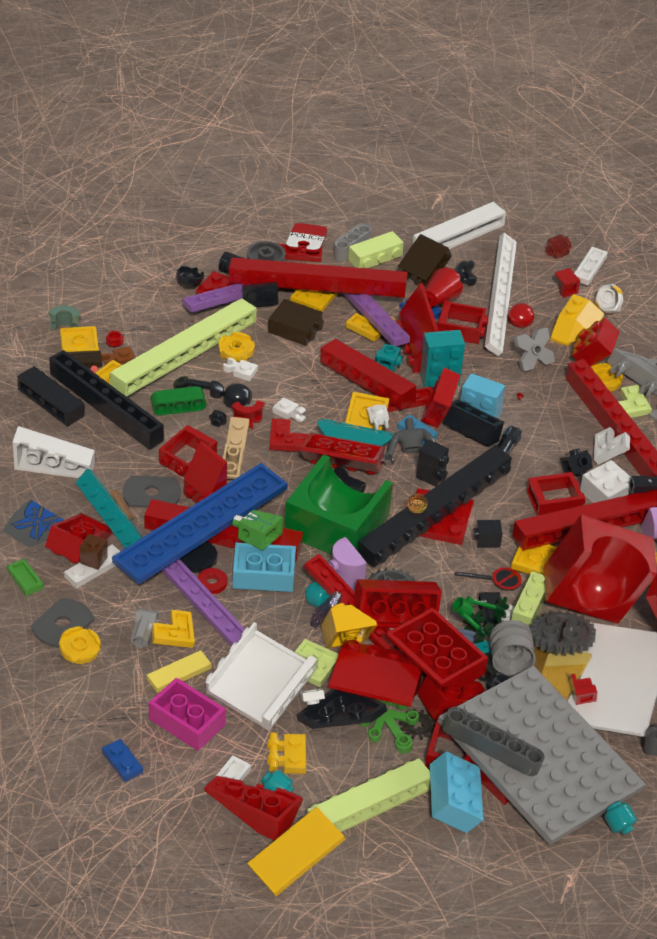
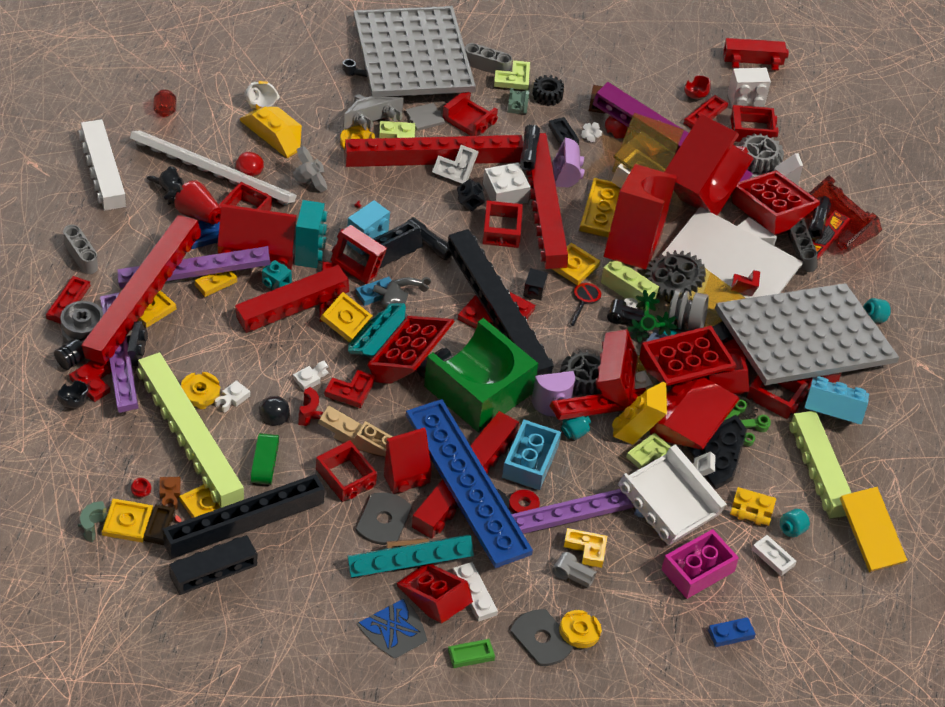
camera: 75 degrees left, 5 degrees up
(50, 455) = (312, 585): white wedge -> none
(93, 551) = (478, 578): reddish brown brick -> none
(182, 669) = (634, 560): light yellow tile -> none
(215, 387) = (236, 448): black bar -> none
(218, 418) = (303, 434): black plate -> none
(259, 528) = (498, 438): bright green torso -> none
(262, 809) = (819, 540): red wedge -> none
(295, 322) = (185, 331): dark brown brick -> none
(307, 234) = (48, 280): piece -> none
(322, 611) = (603, 424): tile -> none
(376, 250) = (105, 235): yellowish green brick -> none
(378, 415) = (364, 306): white plate -> none
(417, 503) = (504, 313): clear orange tile -> none
(423, 259) = (148, 203): dark brown brick -> none
(432, 463) = (440, 289): black brick -> none
(493, 741) = (809, 352): dark grey beam -> none
(569, 282) = (220, 112): red panel -> none
(590, 265) = (201, 92): white plate -> none
(596, 342) = (326, 124): red brick -> none

